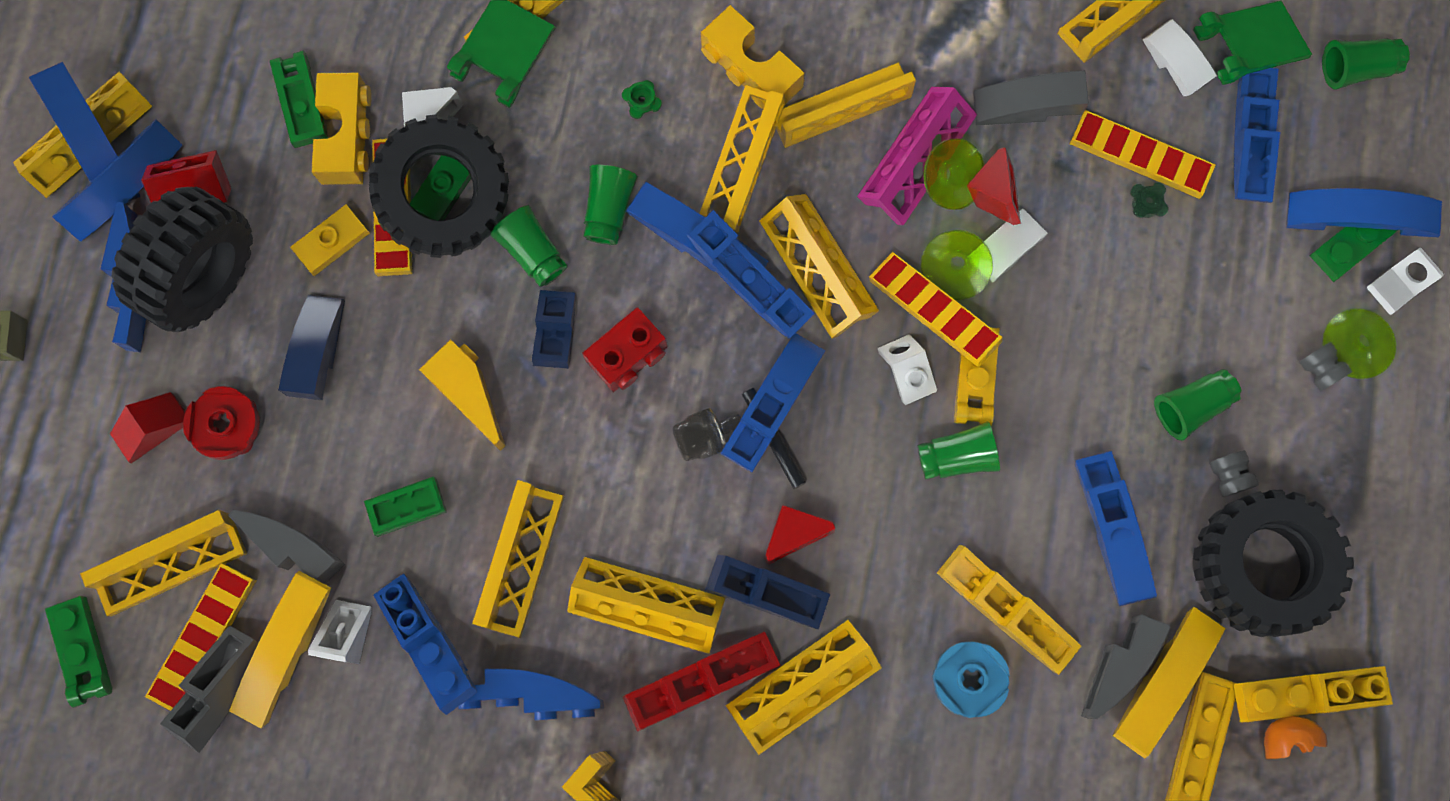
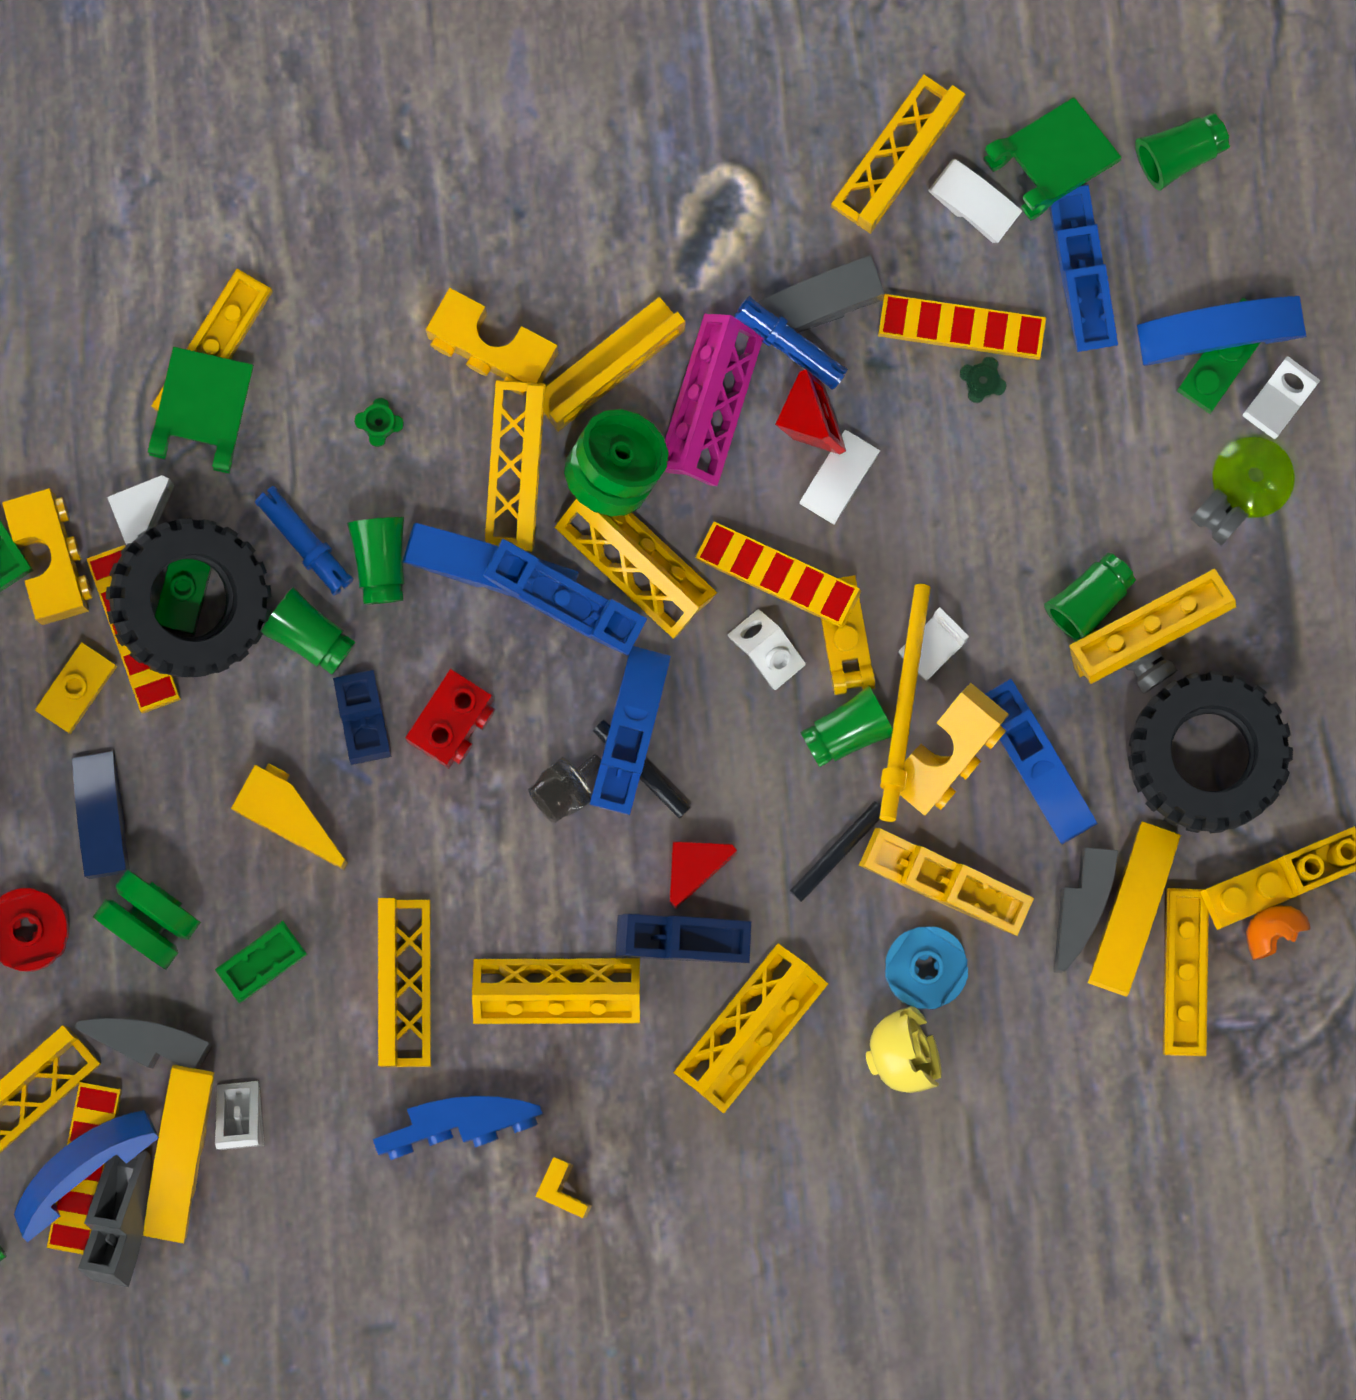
camera: 20 degrees left, 5 degrees up
(233, 620) = (75, 1162): none -> blue slope
(313, 444) = (148, 917): none -> green wheel
(426, 643) = (332, 1101): blue slope -> none
(557, 187) = (314, 552): none -> blue pin
(701, 681) = (640, 1054): red slope -> none
(825, 177) = (616, 462): none -> green wheel
(921, 556) = (837, 852): none -> black bar
(931, 749) = (903, 1053): none -> light yellow cylinder
(962, 281) = (785, 533): clear neon green dish -> none
(963, 163) = (766, 397): clear neon green dish -> none
(991, 503) = (894, 777): none -> yellow bar
(998, 126) = (783, 337): none -> blue pin
(1053, 403) = (940, 643): none -> white bracket
(1071, 478) = (971, 723): none -> yellow arch
(1247, 440) = (1151, 626): none -> yellow fence

